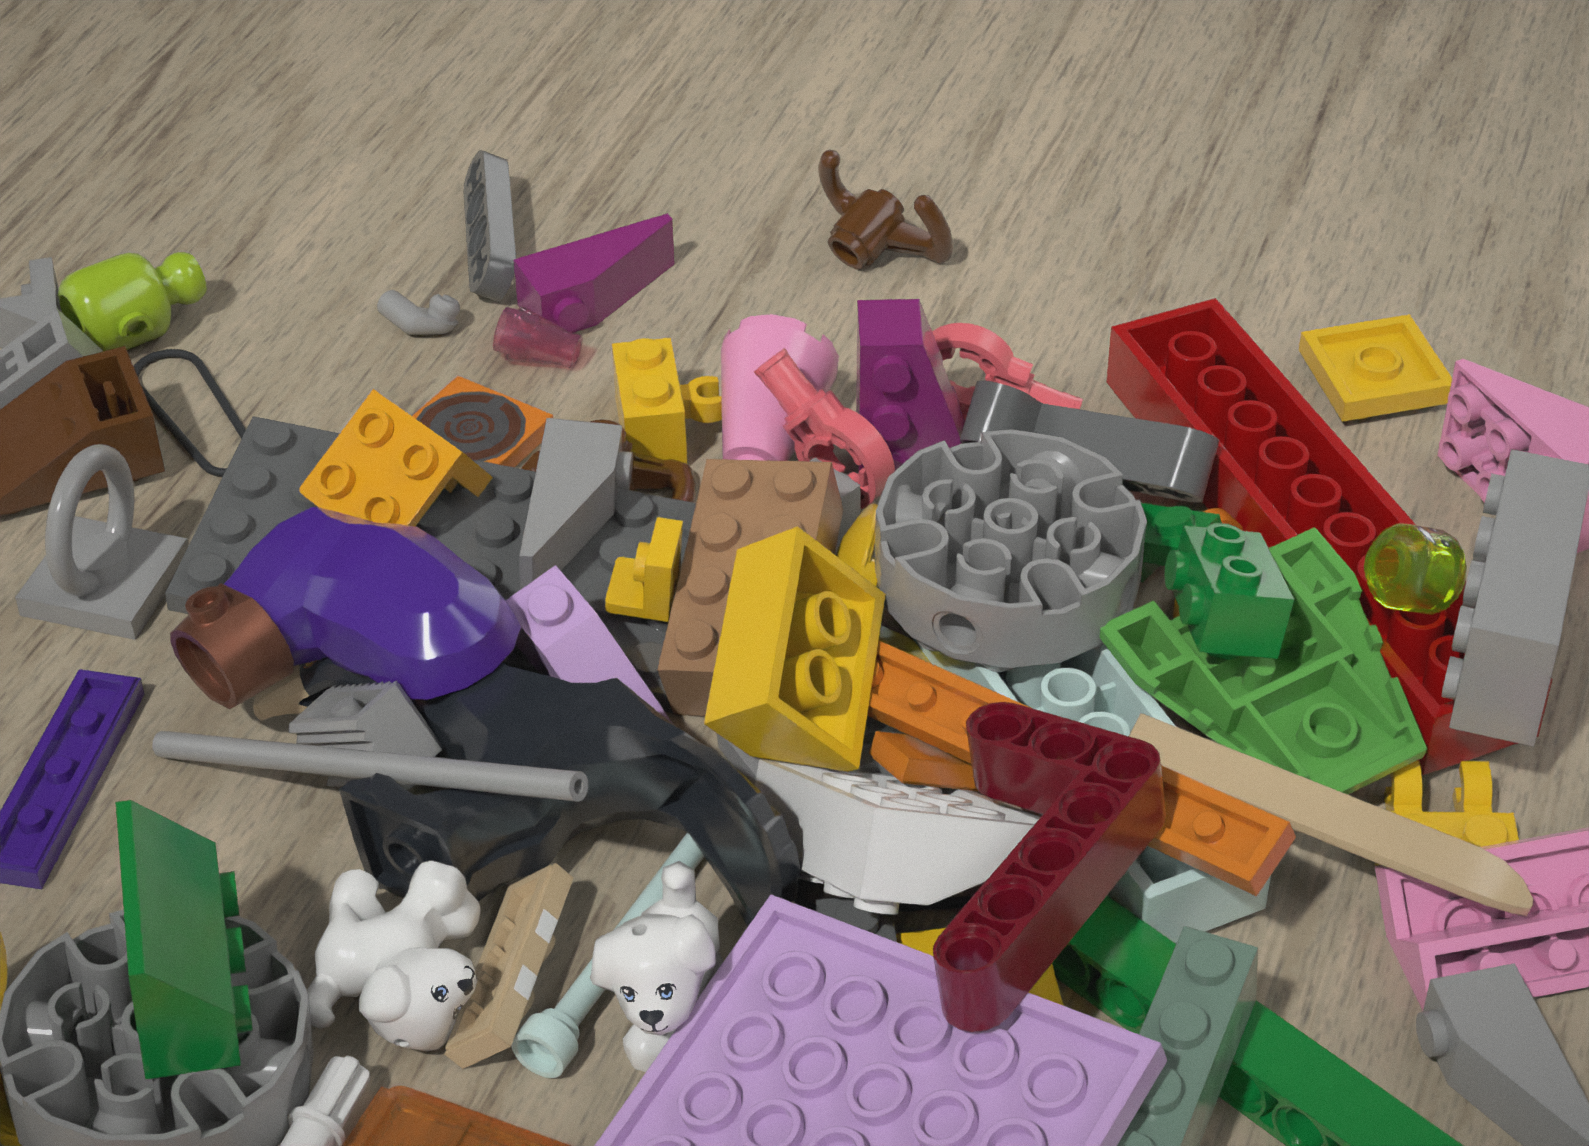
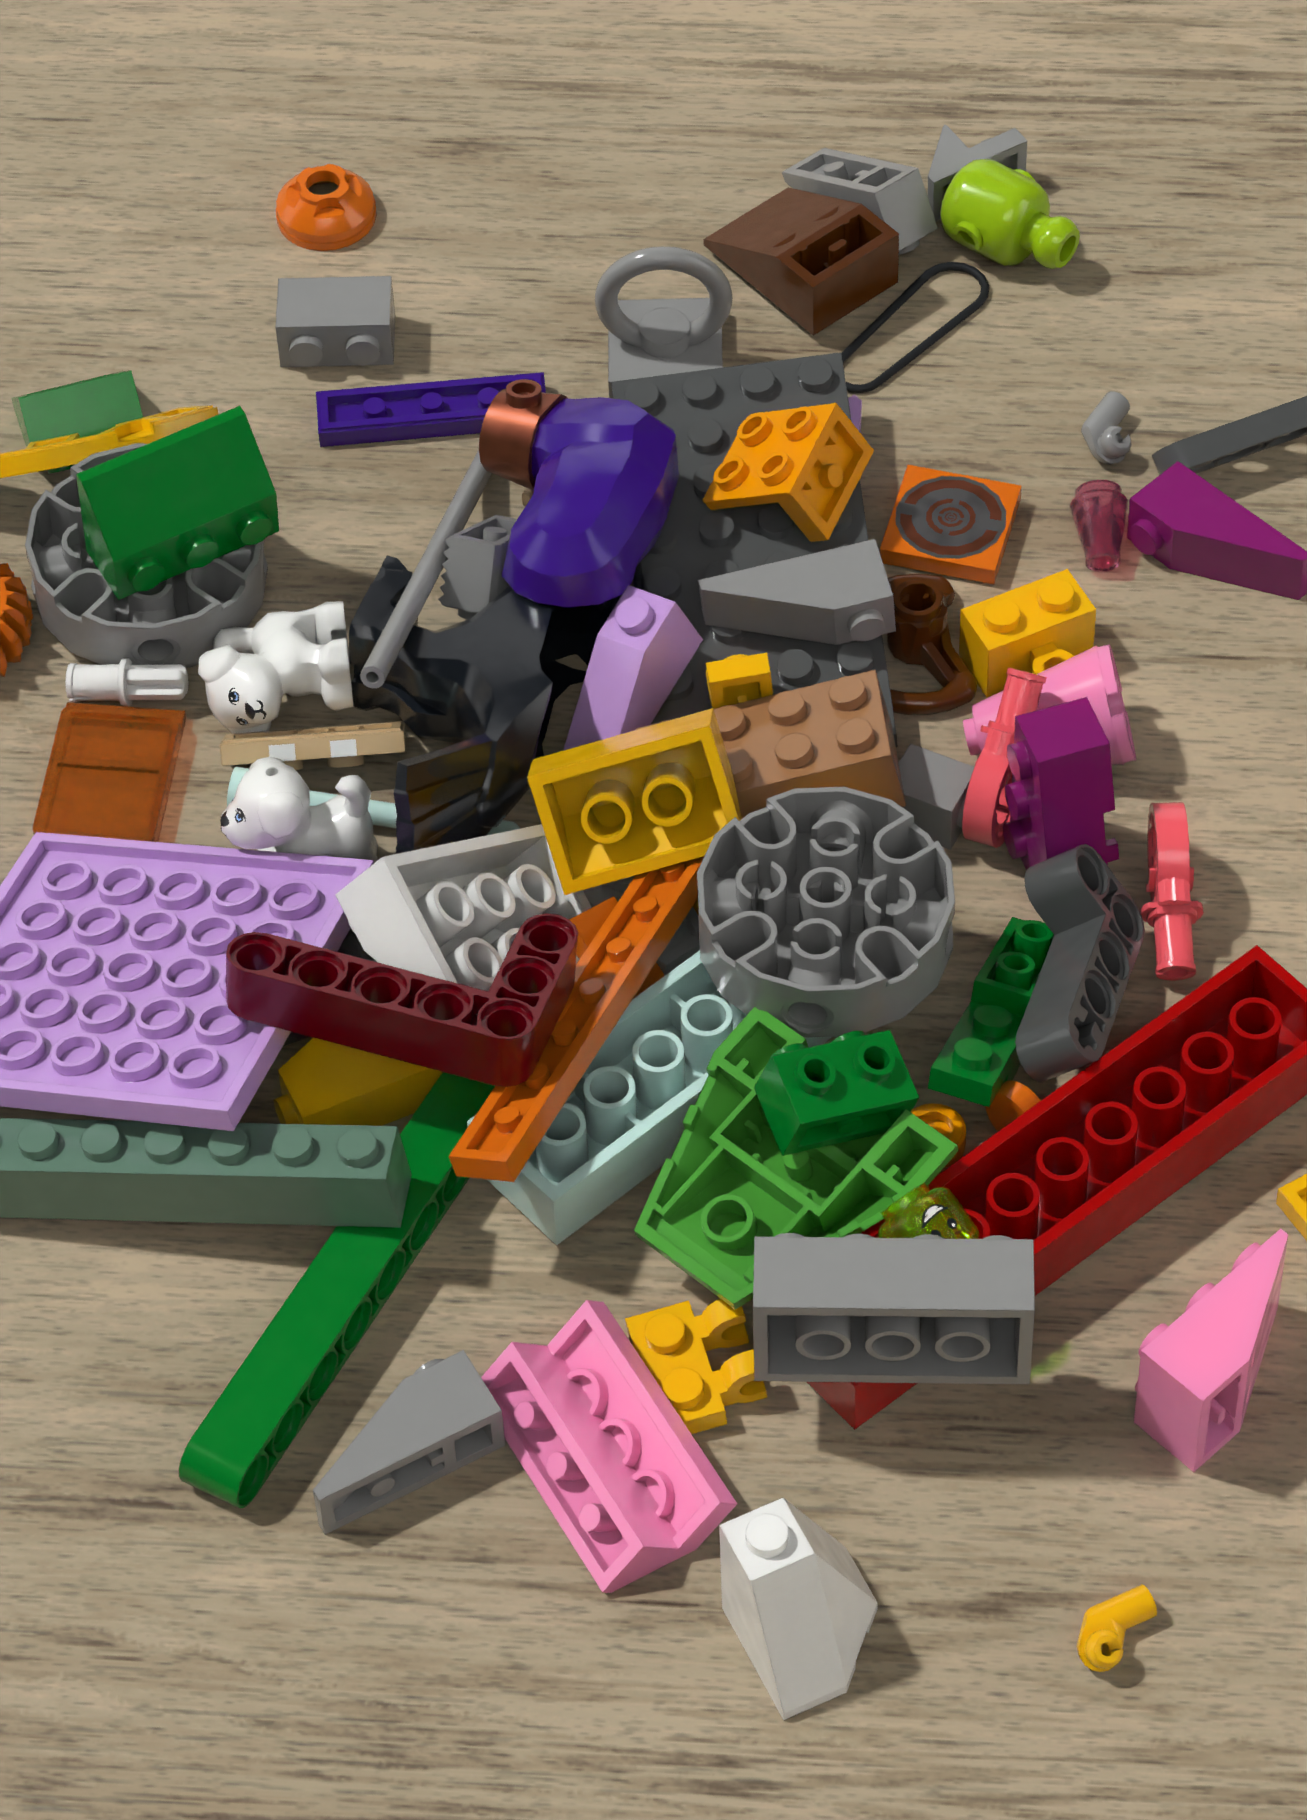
camera: 75 degrees right, 10 degrees up
(1342, 819) = (614, 1236): tan piece -> none

